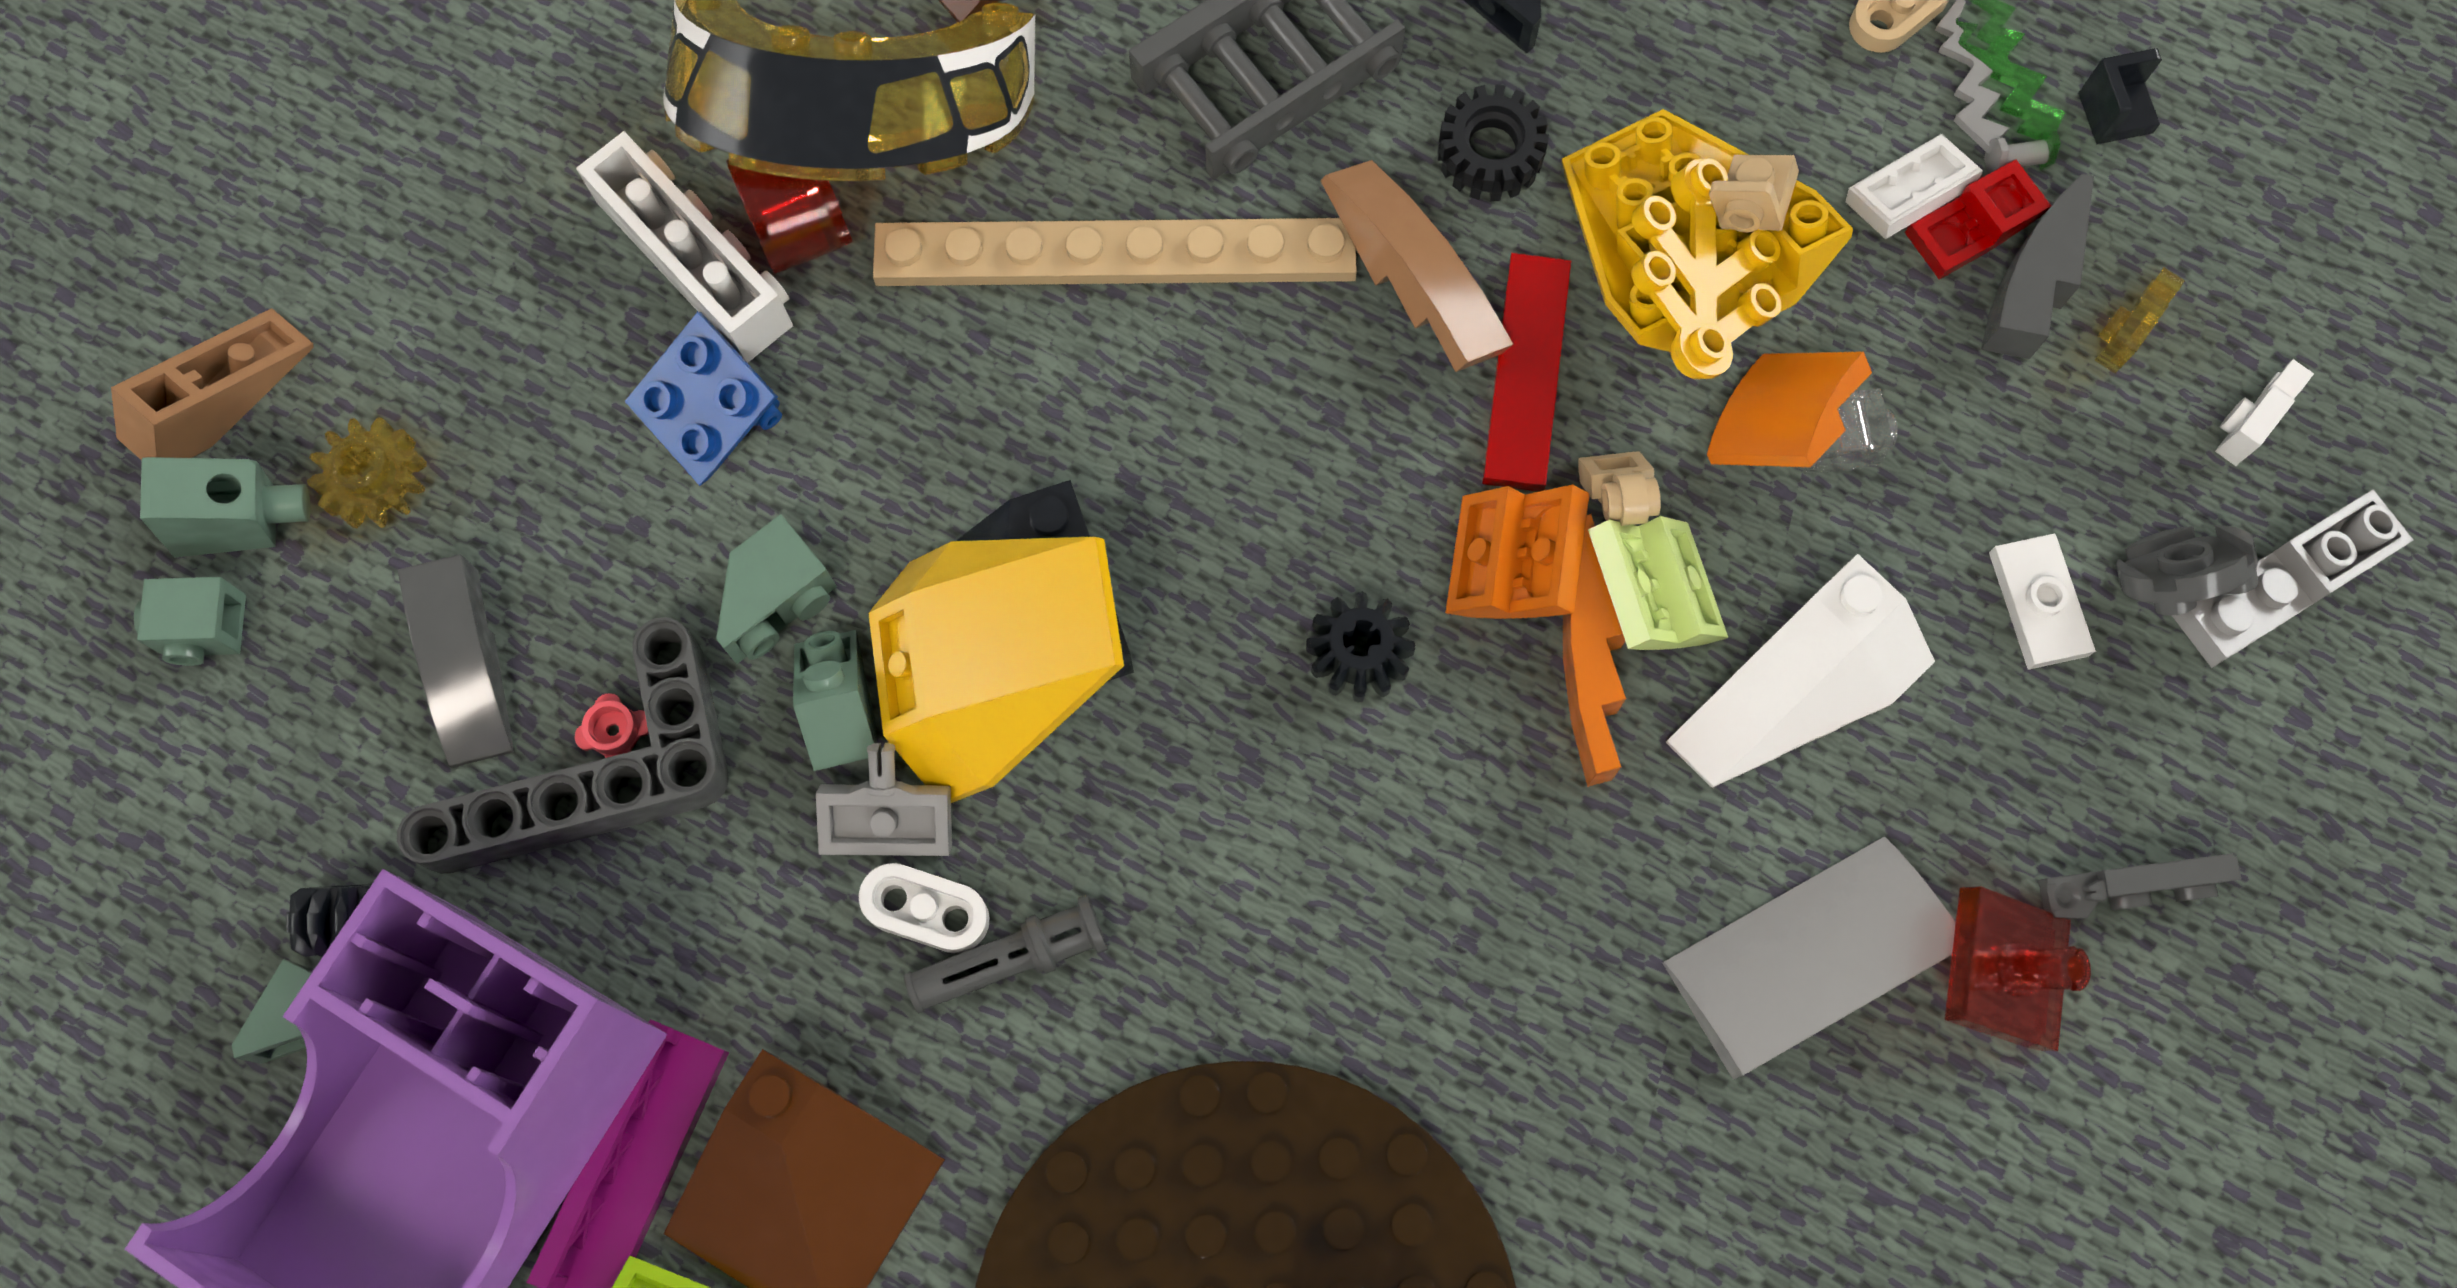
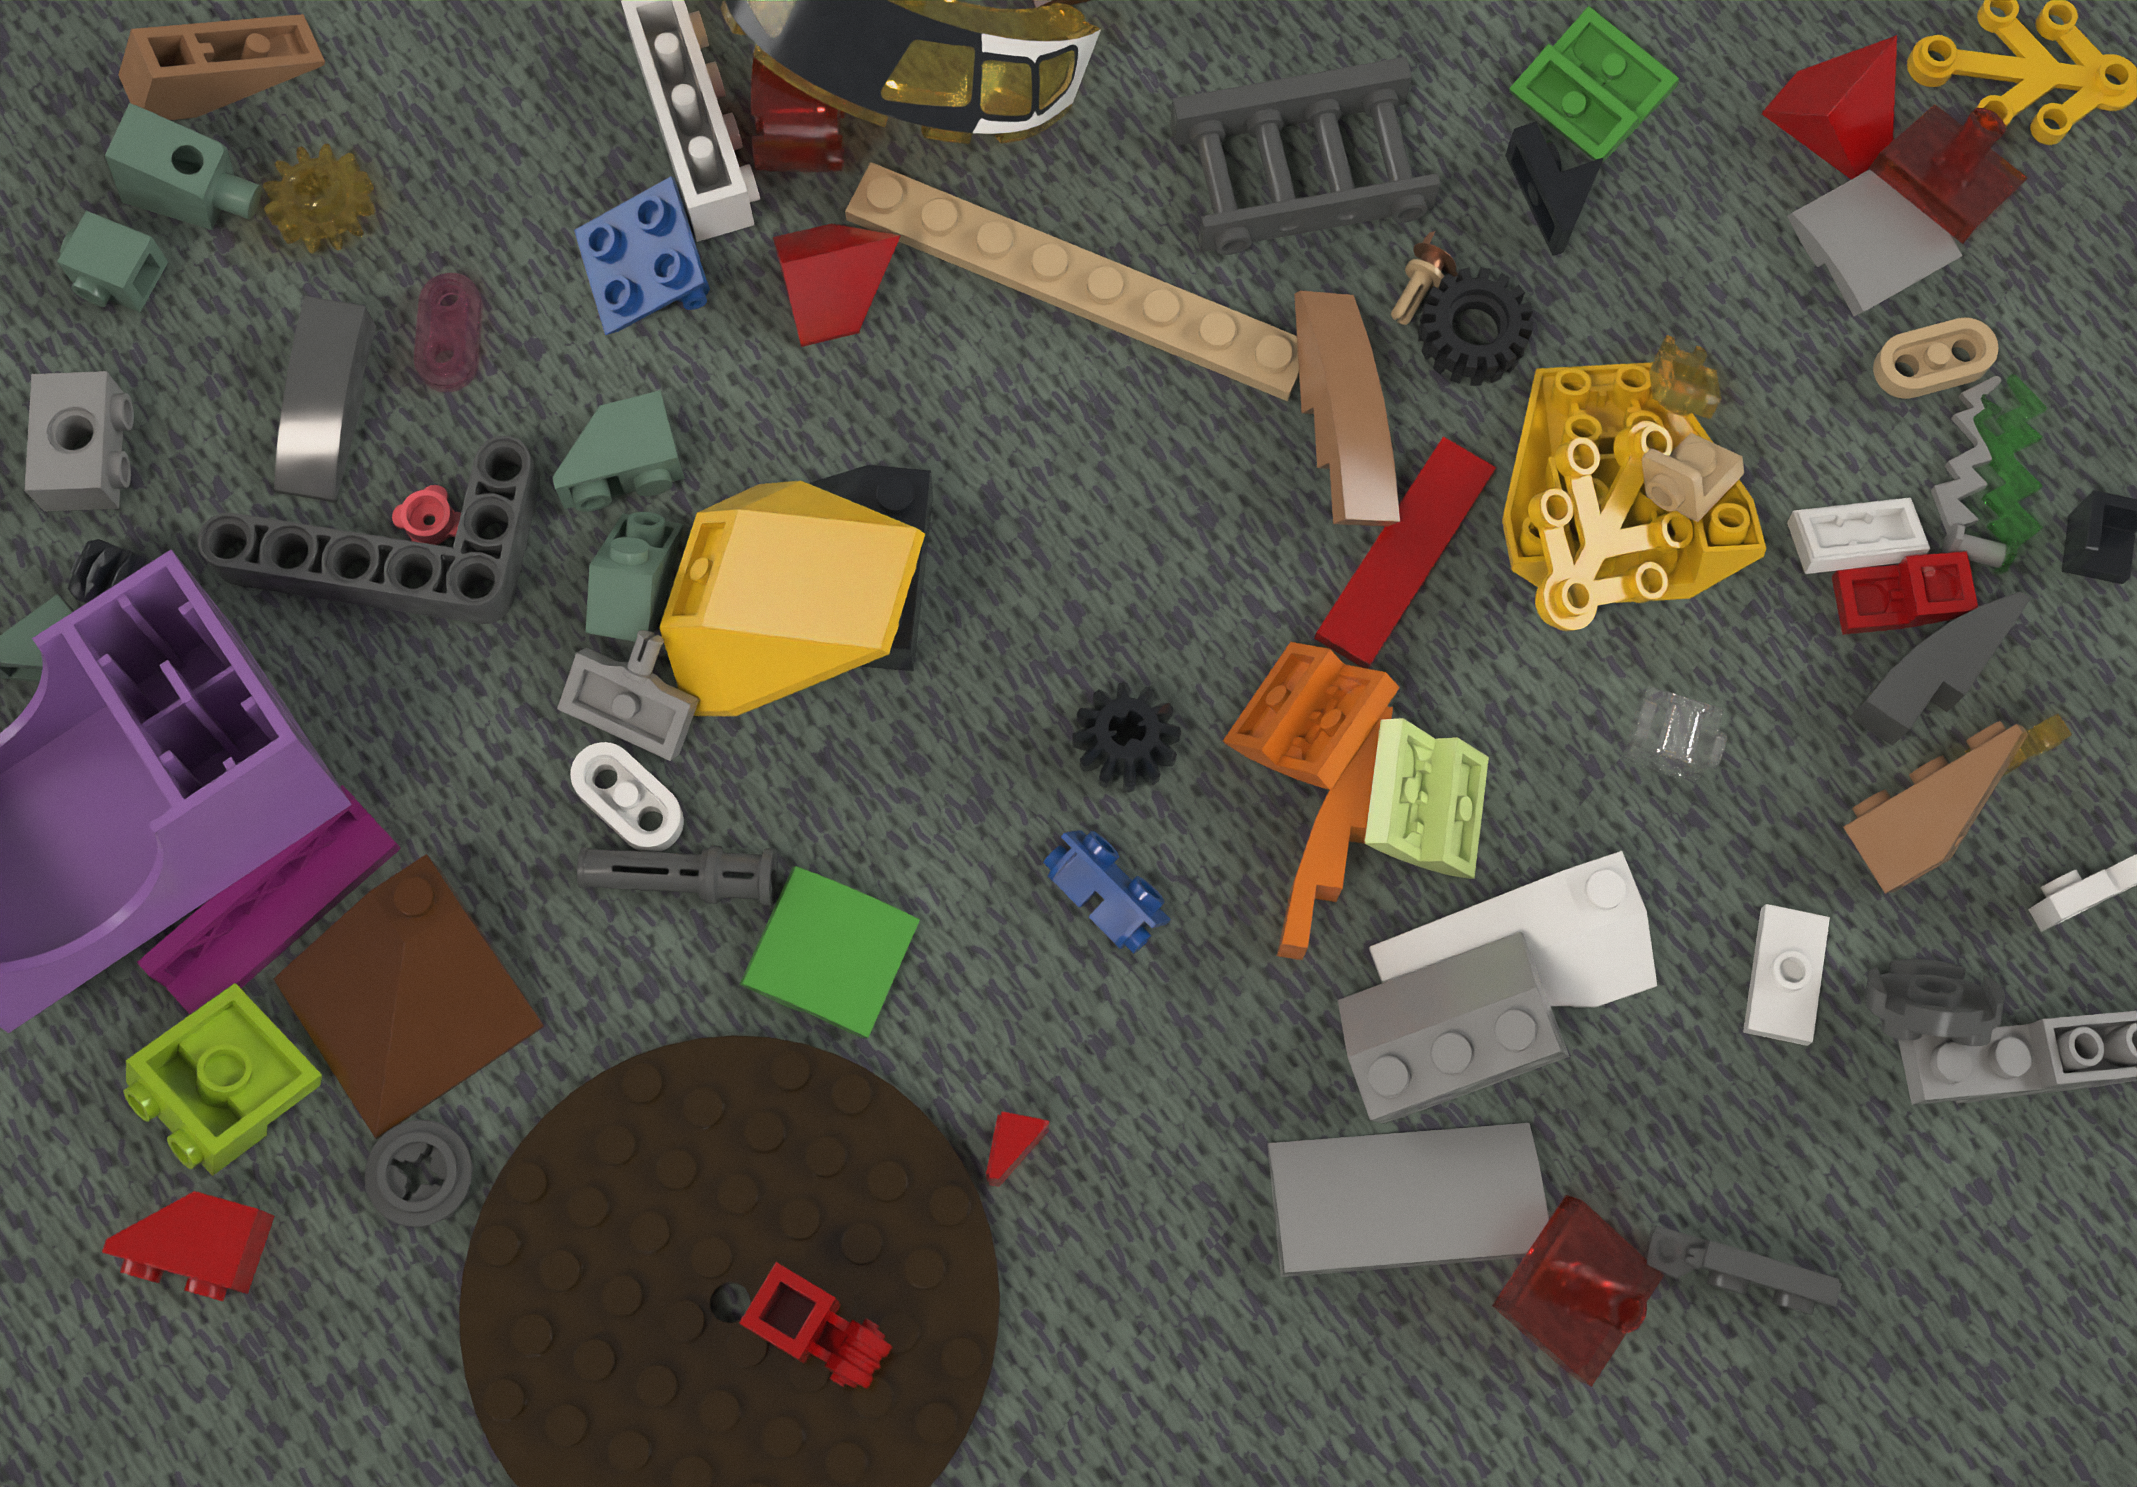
camera: 20 degrees right, 0 degrees up
(207, 782) = (59, 415): none -> light grey brick
(547, 543) = (448, 328): none -> clear pink plate
(889, 342) = (832, 277): none -> red slope
(1182, 967) = (830, 952): none -> bright green slope
(1425, 116) = (1423, 275): none -> tan piece
(1432, 799) = (1126, 903): none -> blue hinge
(1435, 1071) = (1011, 1143): none -> red slope
(1622, 485) = (1436, 694): tan plate -> none
(1701, 115) = (1682, 381): none -> clear yellow plate
(1782, 782) = (1449, 1029): none -> light grey slope
(1787, 409) = (1622, 690): orange slope -> none
(2106, 407) = (1928, 821): none -> medium nougat slope

